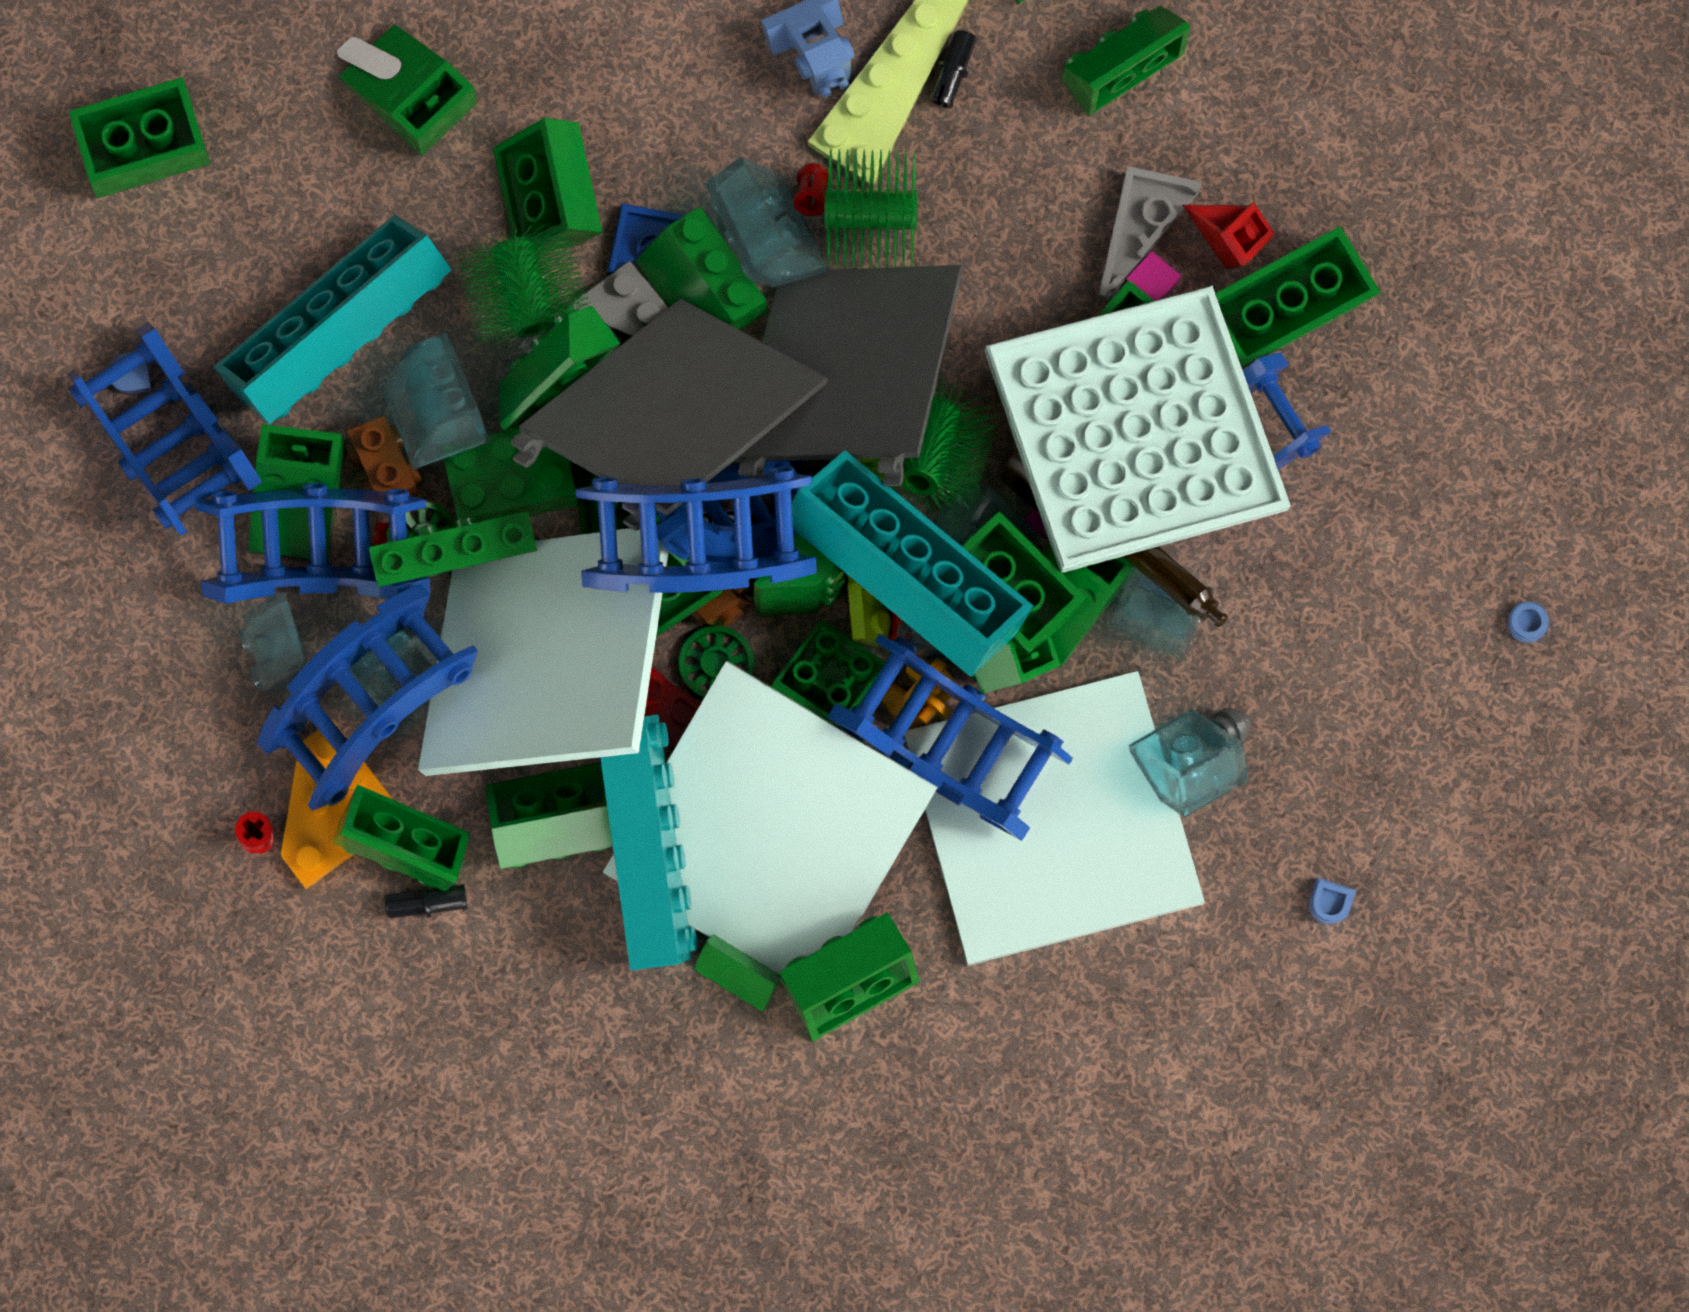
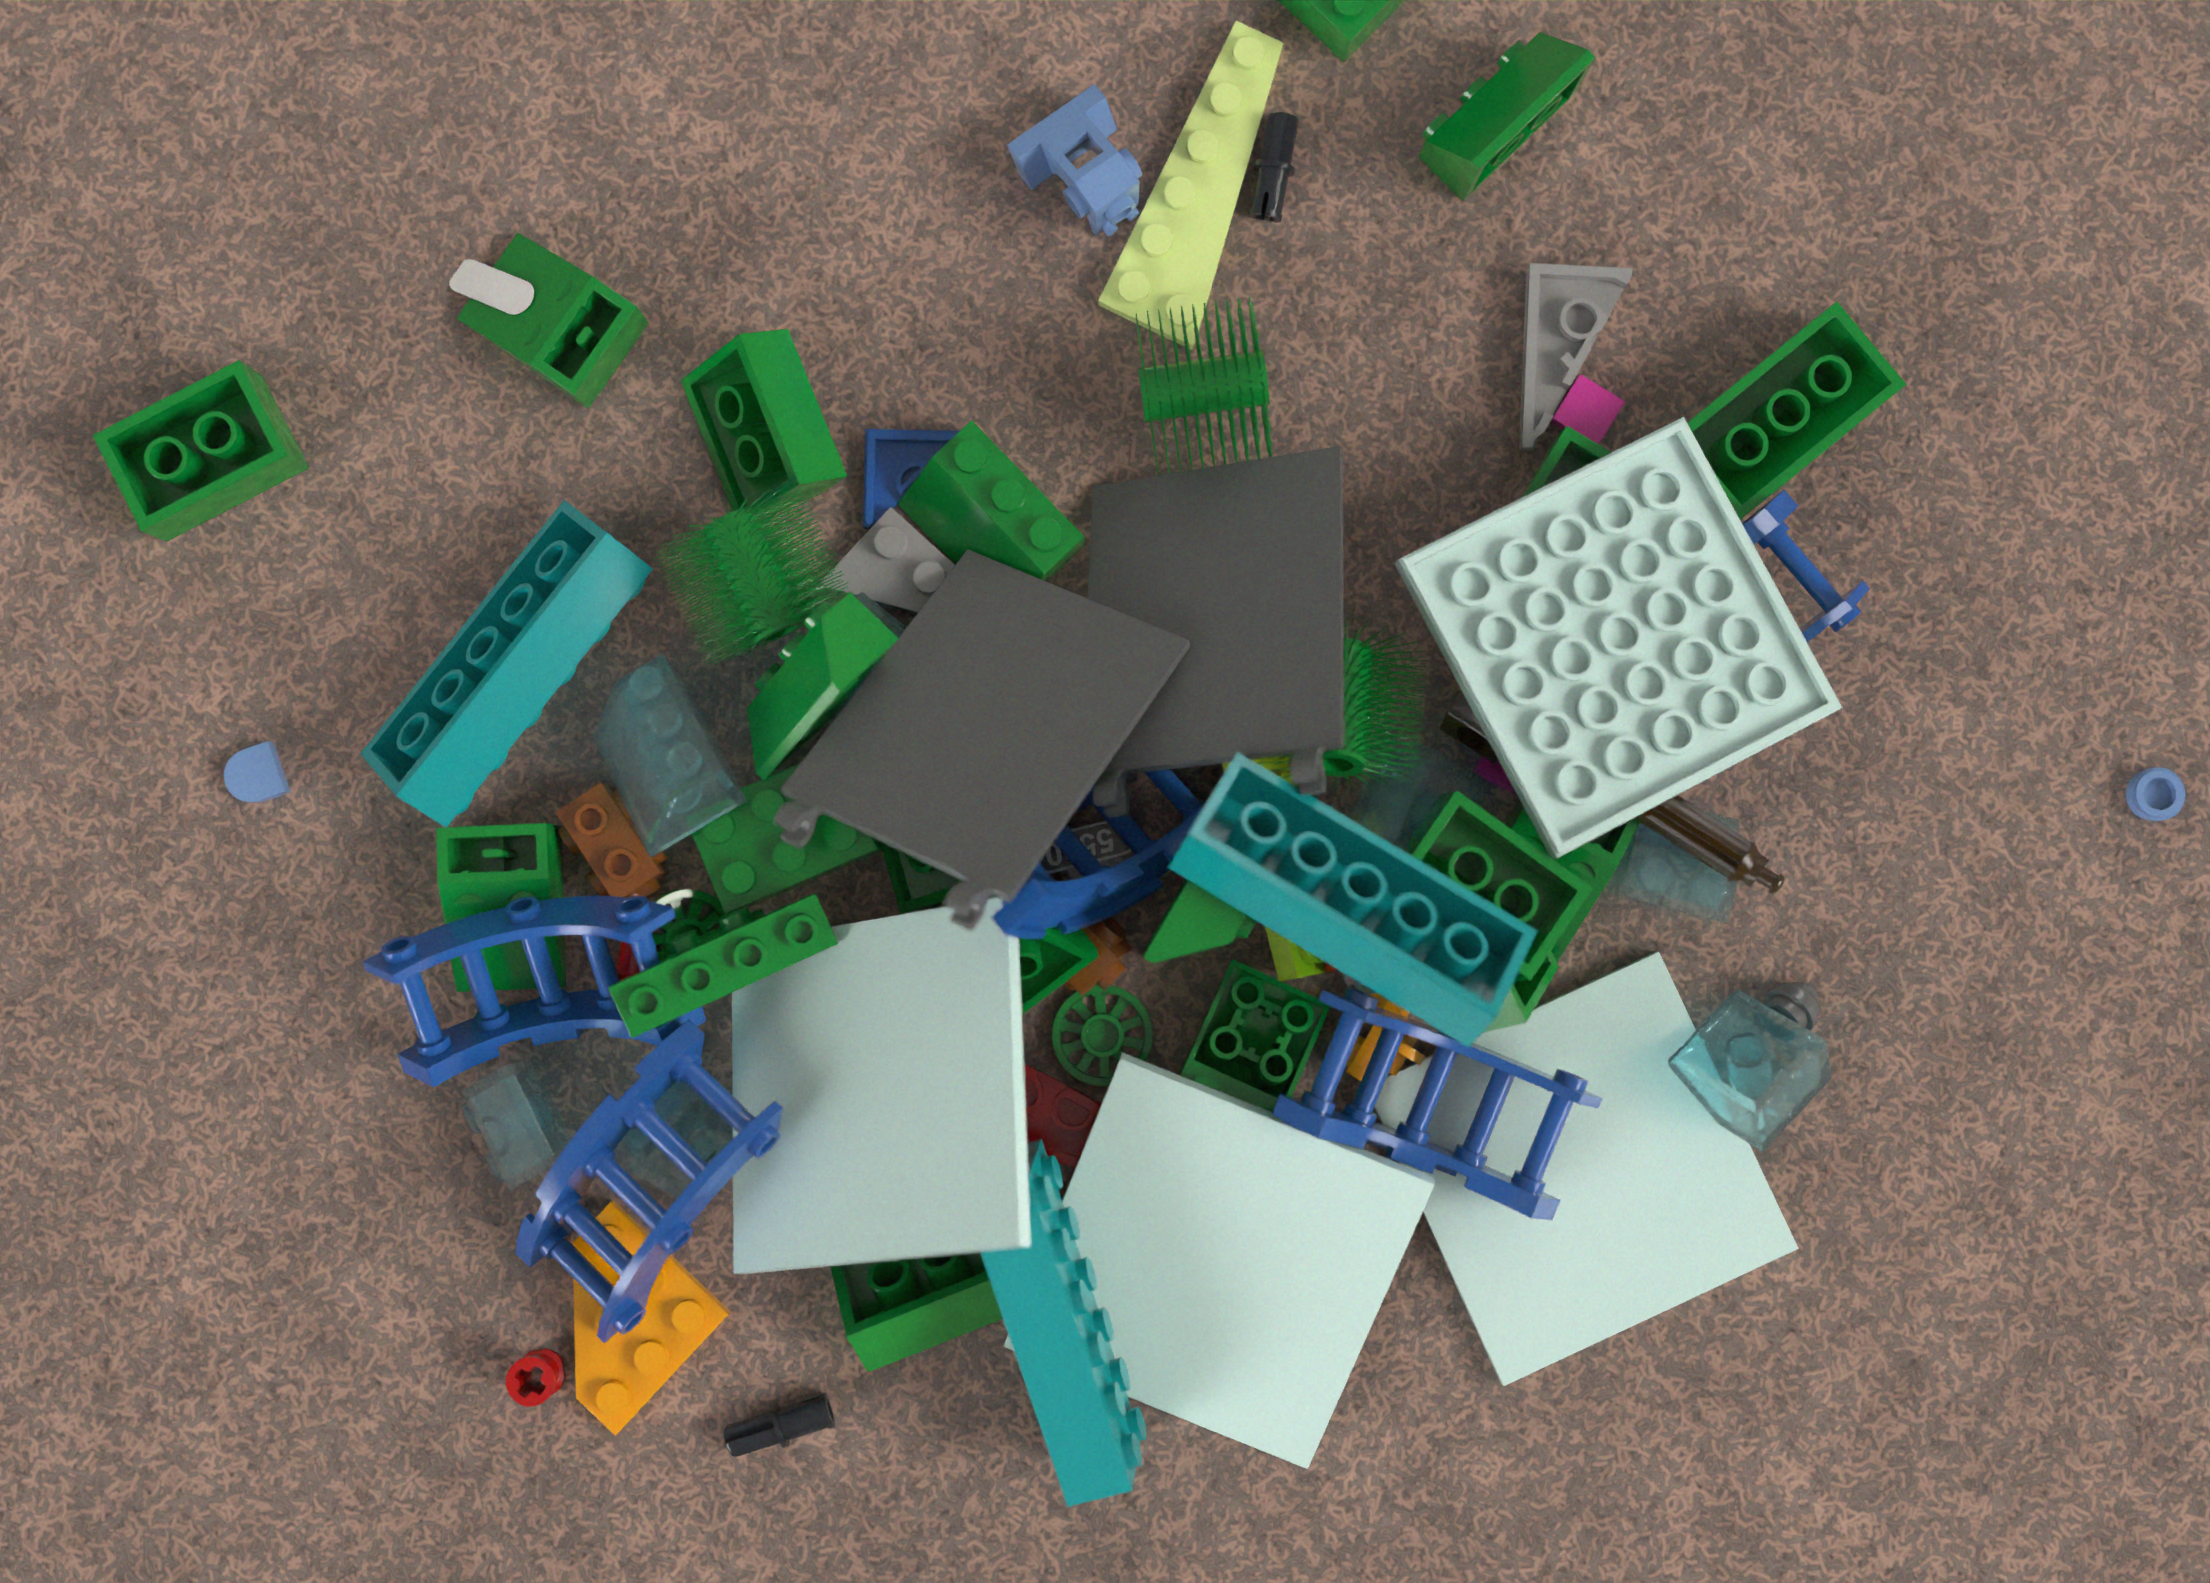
camera: 10 degrees left, 10 degrees up
(201, 421) = (358, 829): blue fence -> none
(402, 838) = (729, 1368): green slope -> none
(698, 572) = (1069, 978): blue fence -> none
(737, 972) = (1206, 1450): green slope -> none
(764, 224) = (1063, 430): clear light blue slope -> none
(803, 197) = (1116, 368): red bush -> none
(849, 975) = (1351, 1439): green slope -> none
(1232, 231) = (1684, 330): red slope -> none
(1330, 901) = (1960, 1216): medium blue tile -> none

